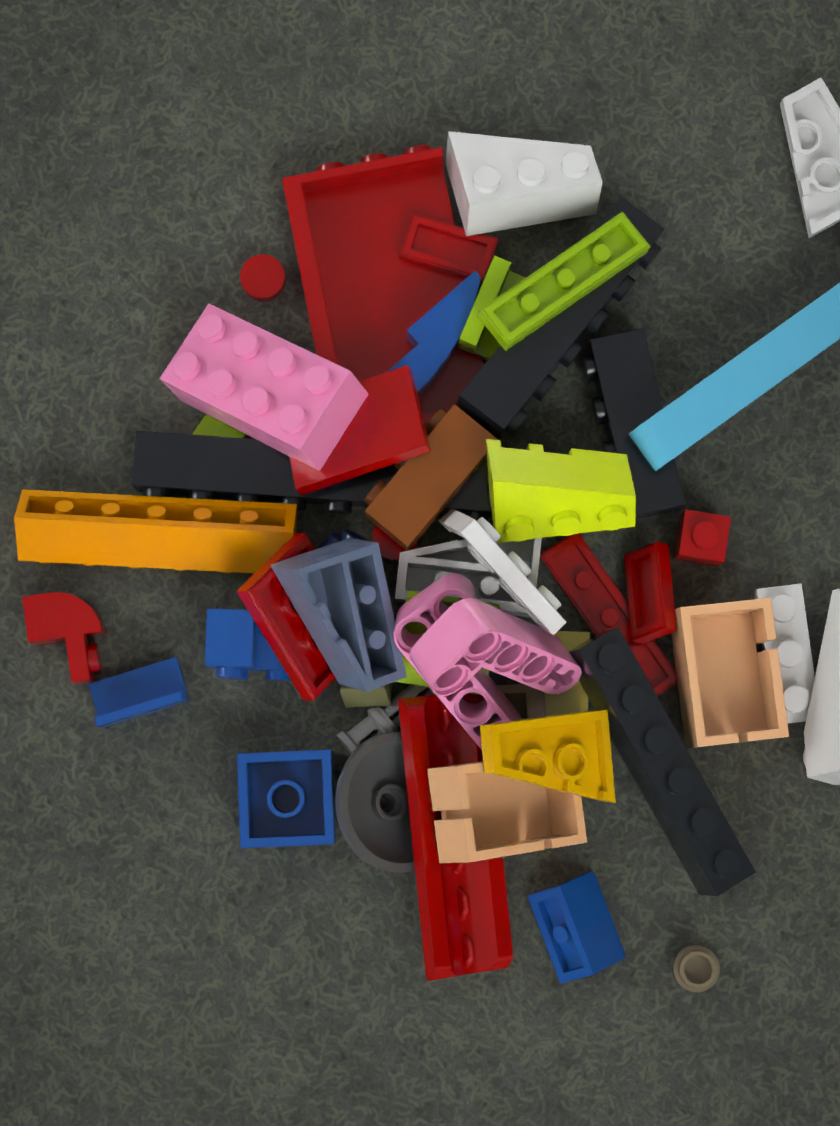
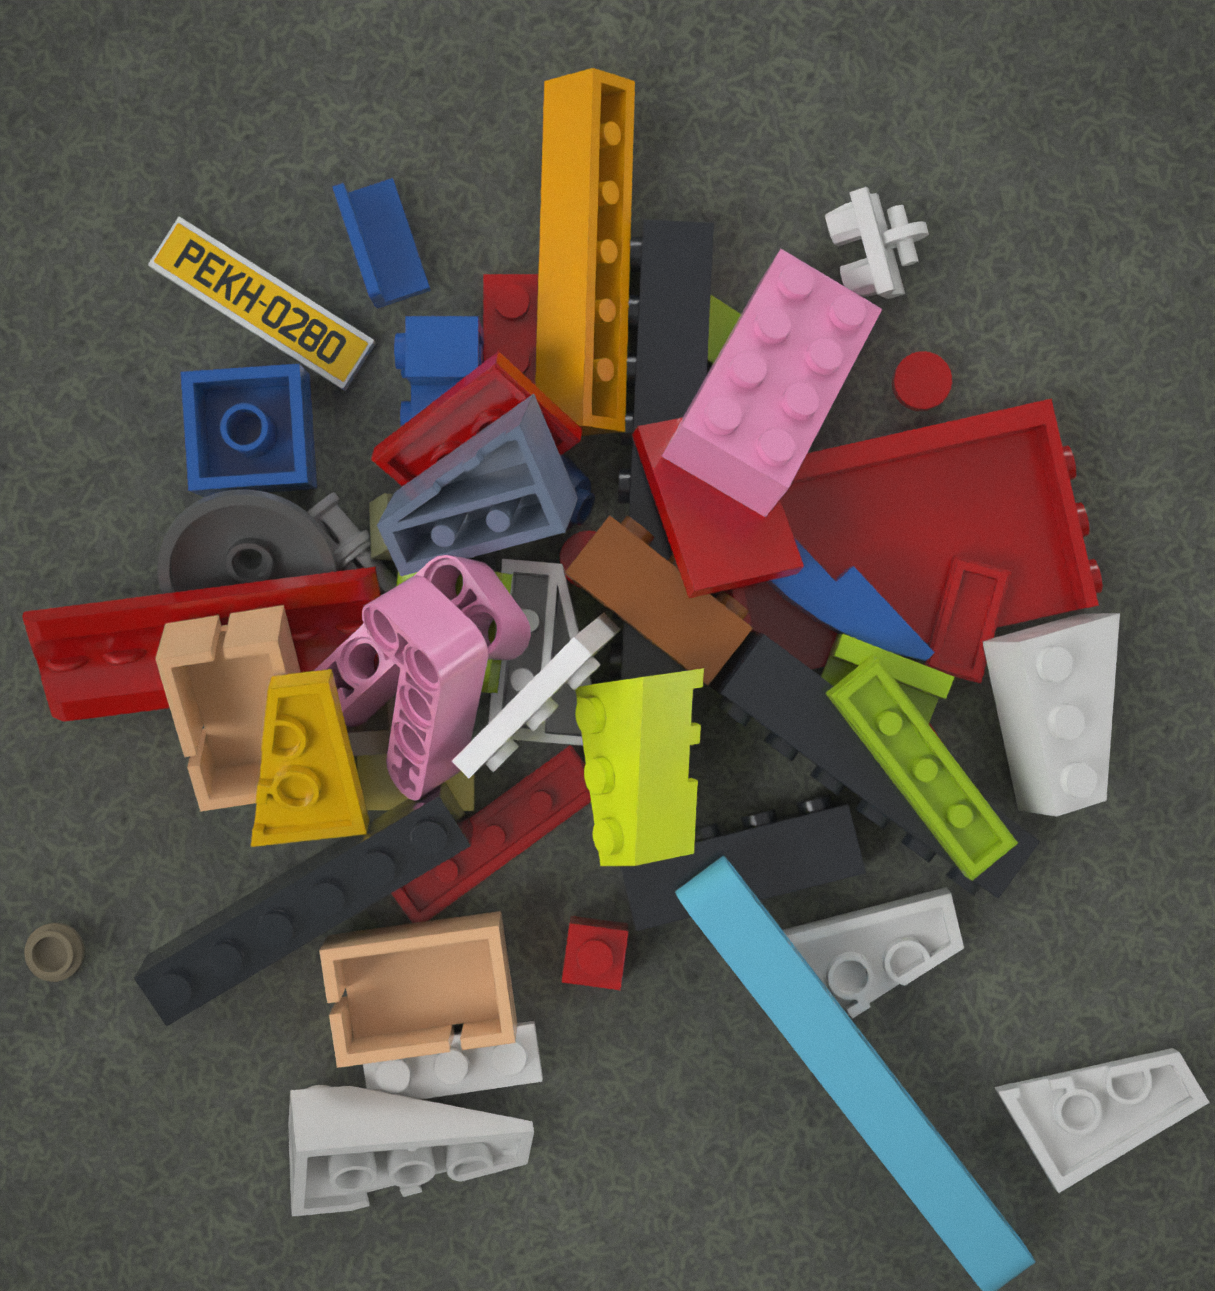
camera: 90 degrees right, 5 degrees up
(70, 619) = (471, 151): red brick -> none
(136, 316) = (866, 221): none -> white hips
(183, 791) = (262, 303): none -> tile
(196, 591) = (511, 319): none -> red plate
(577, 927) = (100, 802): blue panel -> none
(650, 592) = (523, 887): red tile -> none
(699, 320) = (879, 946): none -> white wing

